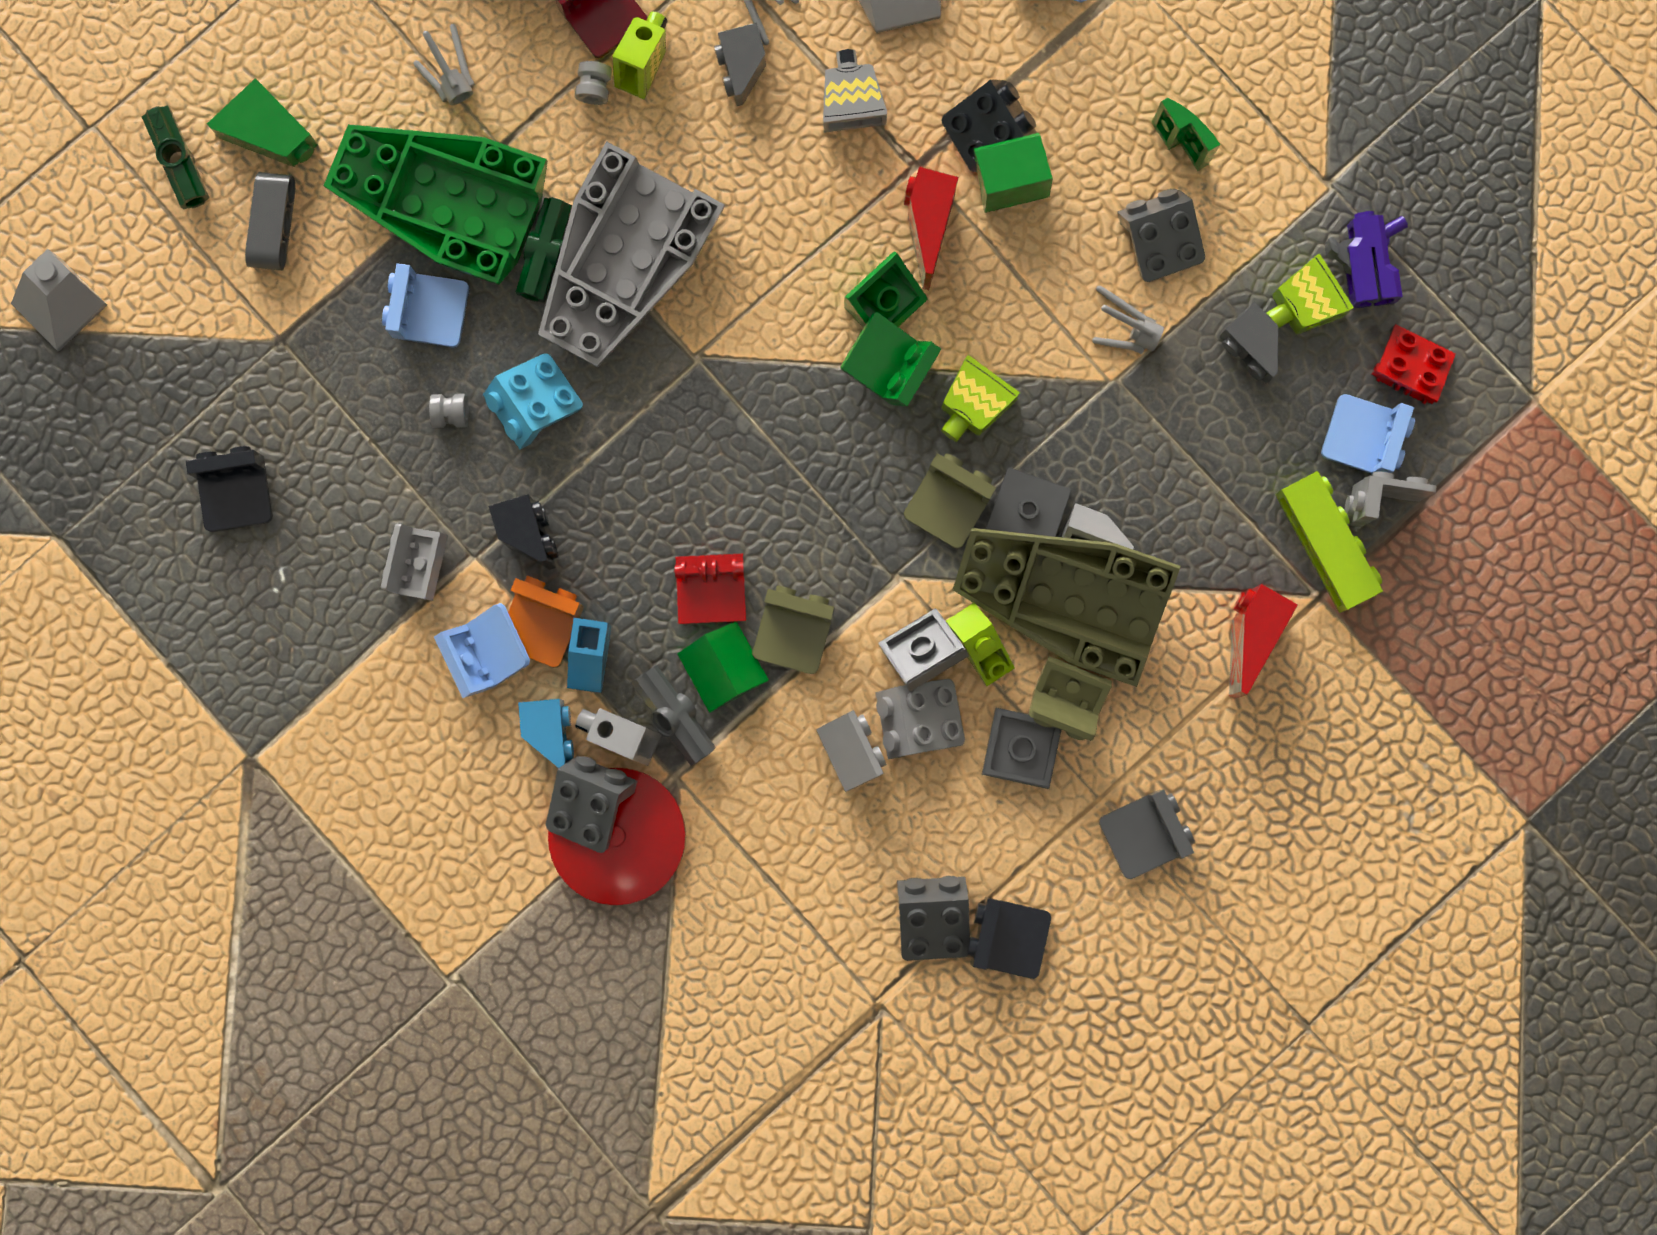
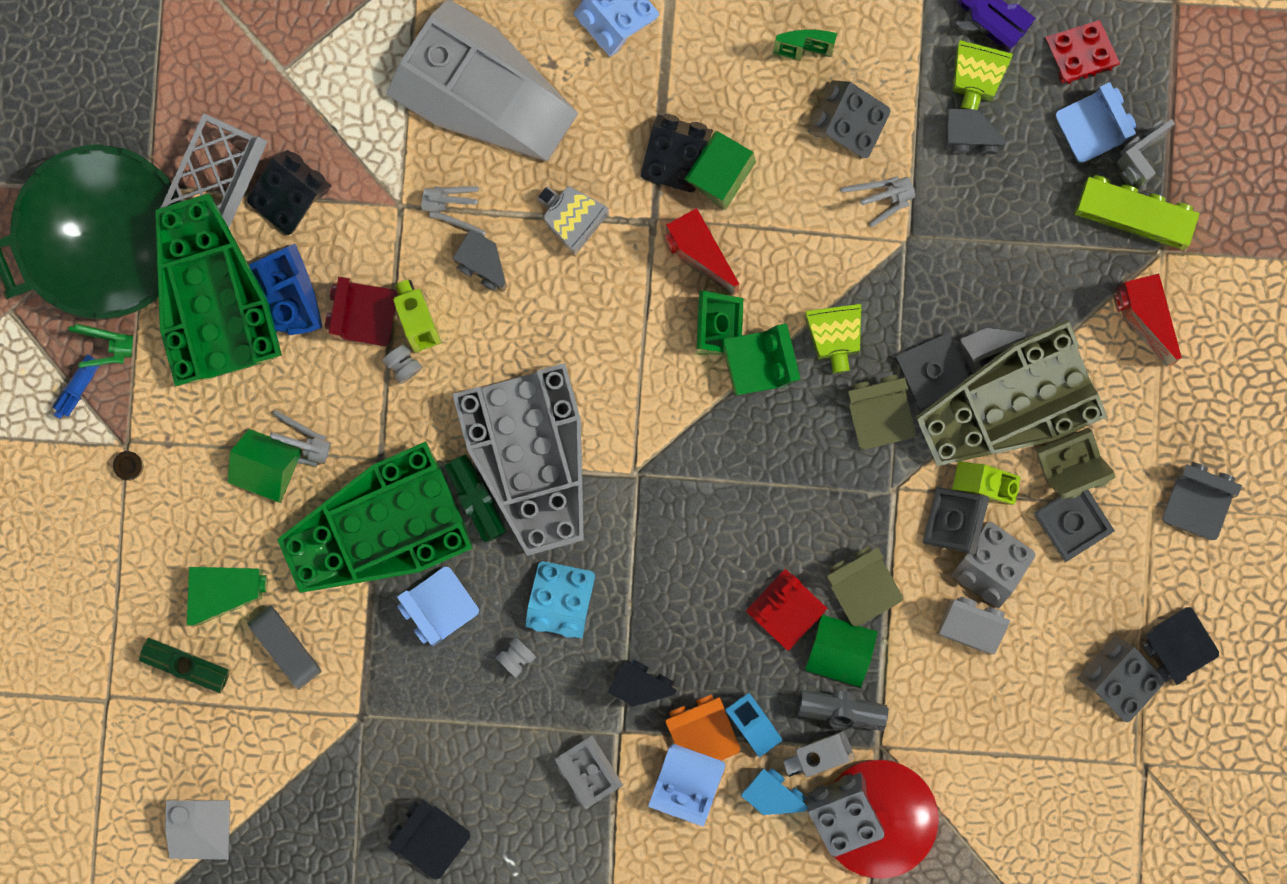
camera: 40 degrees left, 0 degrees up
(398, 56) = (262, 465): none -> green slope

